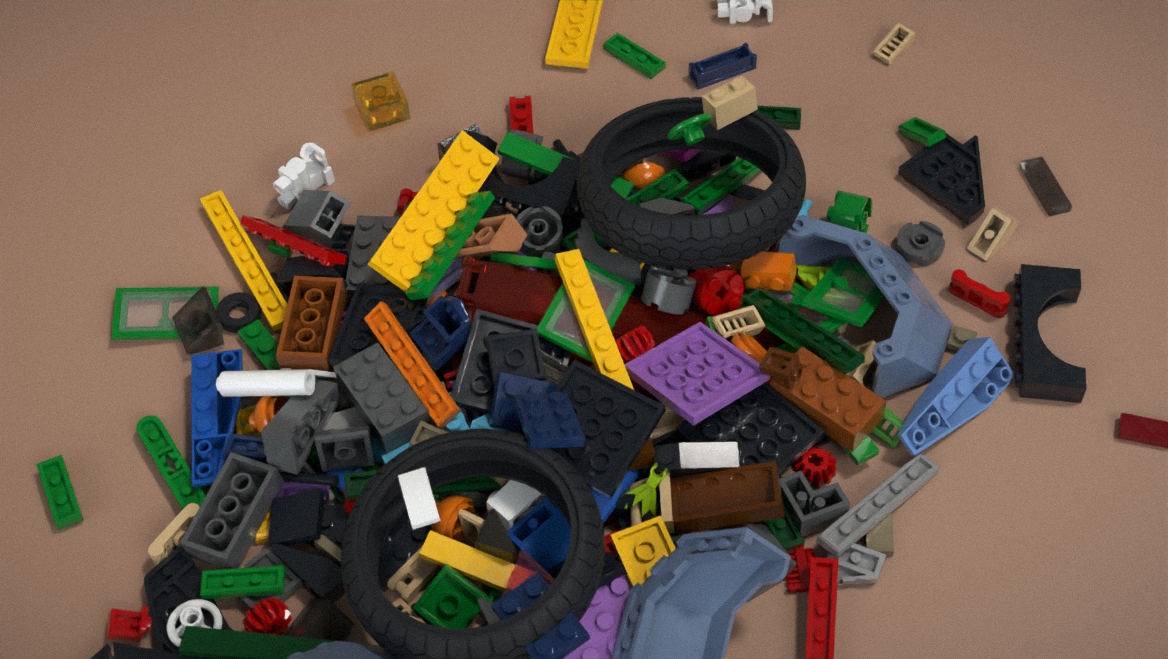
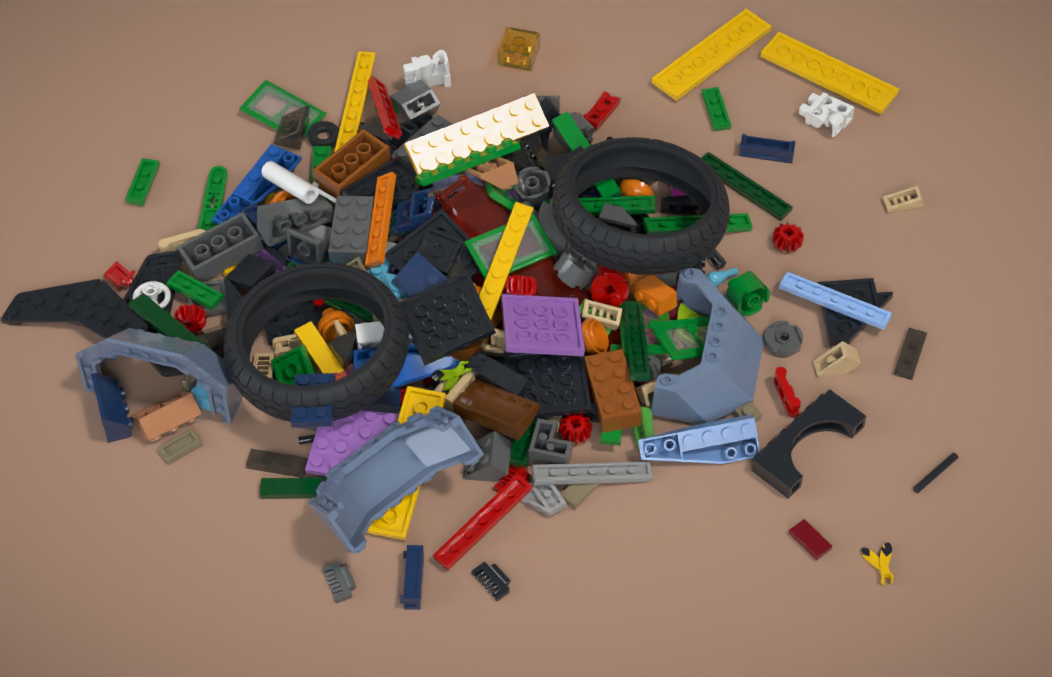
camera: 35 degrees right, 0 degrees up
(418, 498) = (301, 291): white slope -> none
(549, 420) = (415, 294): dark blue plate -> none
(690, 129) = (657, 169): green piece -> none
(730, 102) = (701, 166): tan brick -> none
(782, 366) = (591, 351): reddish brown bracket -> none
(828, 140) = (788, 237): none -> red gear
(922, 131) = (858, 268): green tile -> none
(935, 174) = (835, 300): none -> light blue tile

